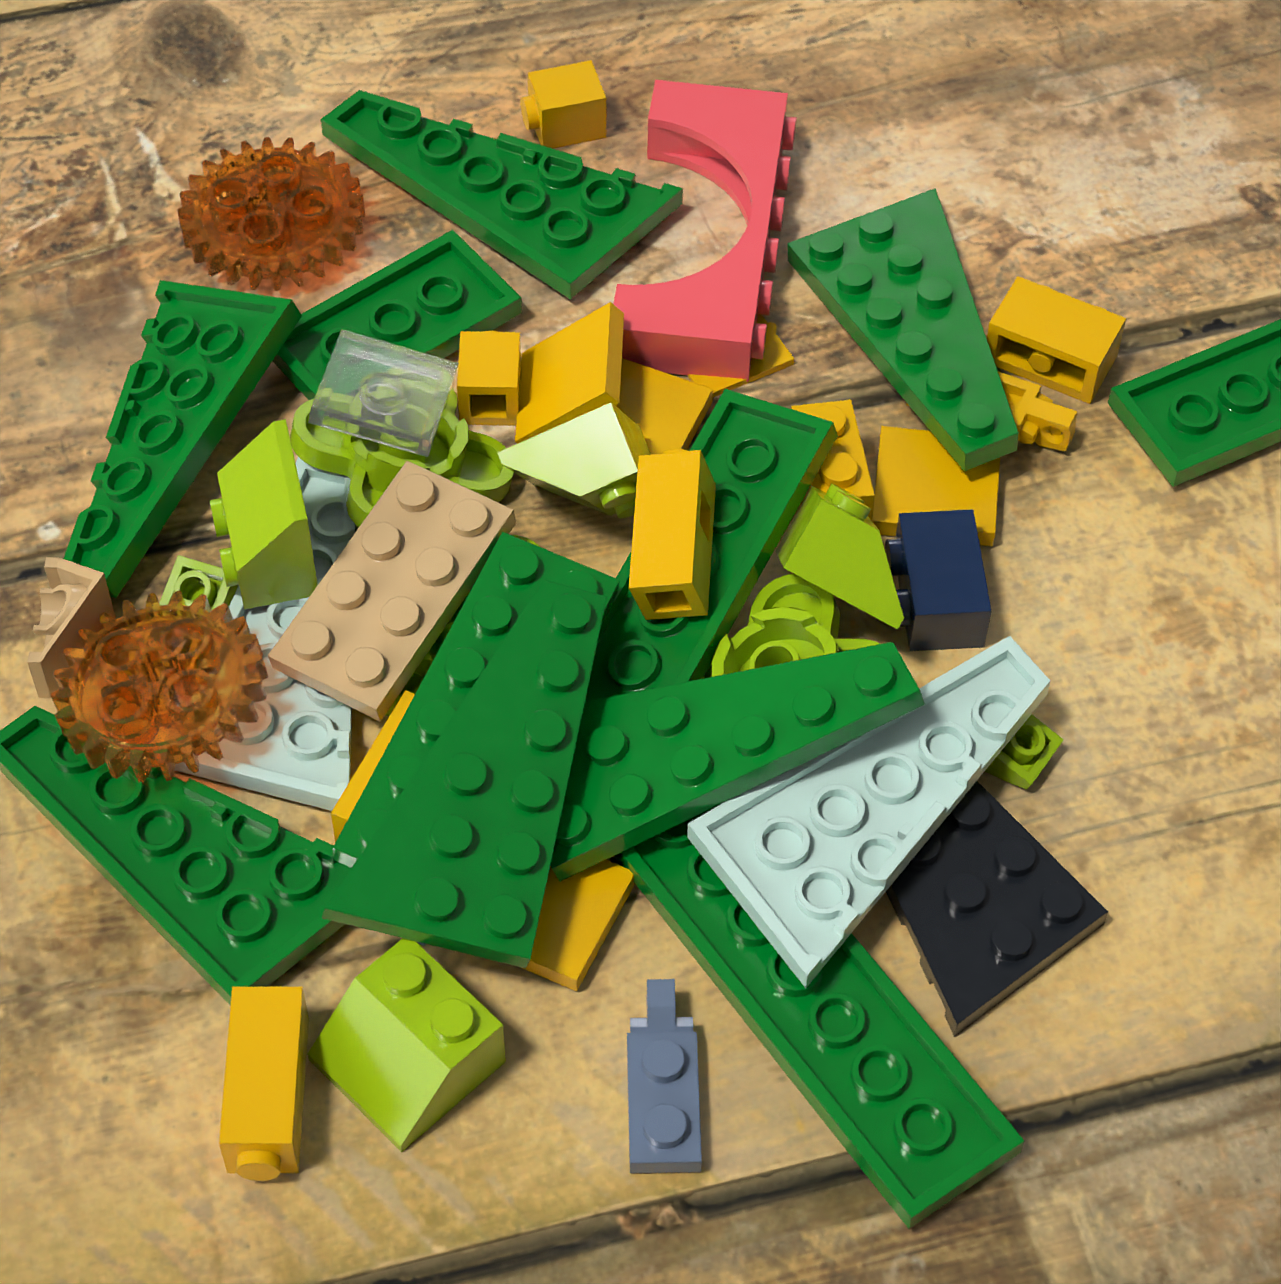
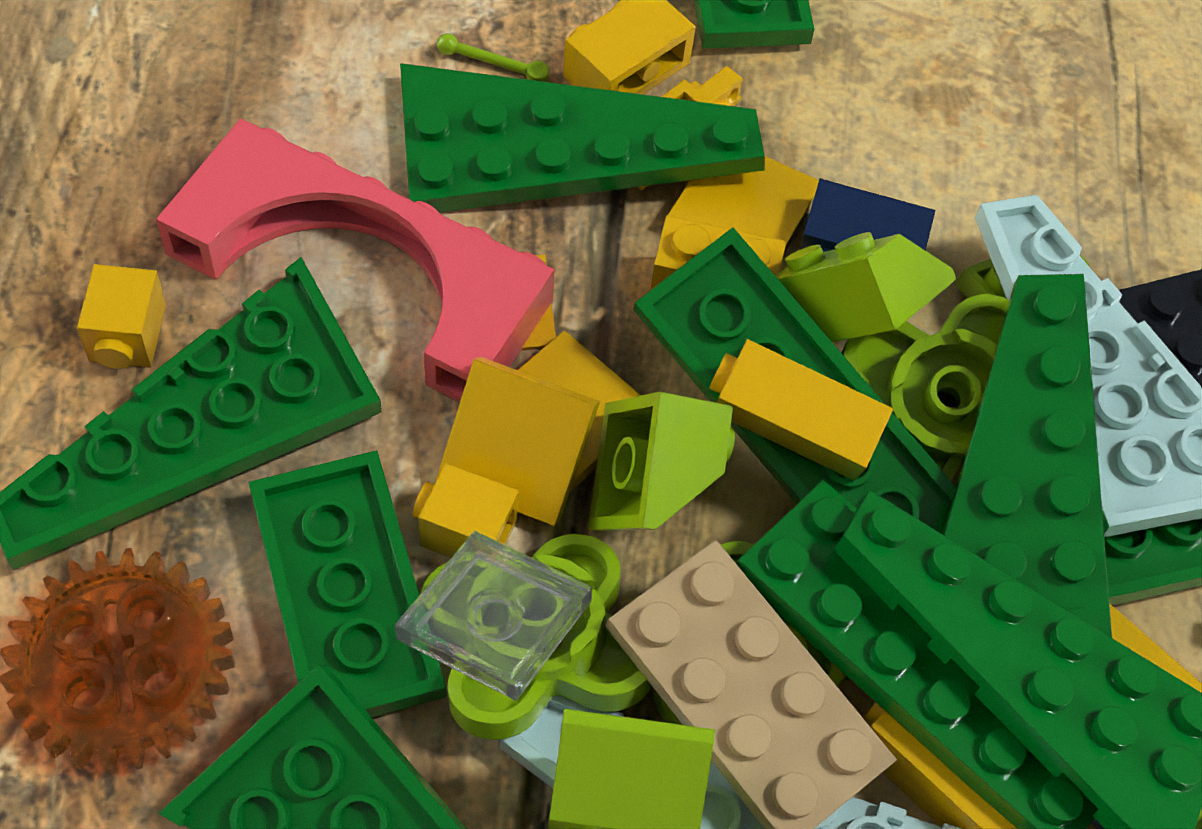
camera: 75 degrees left, 5 degrees up
(997, 289) = (536, 70): none -> lime hinge

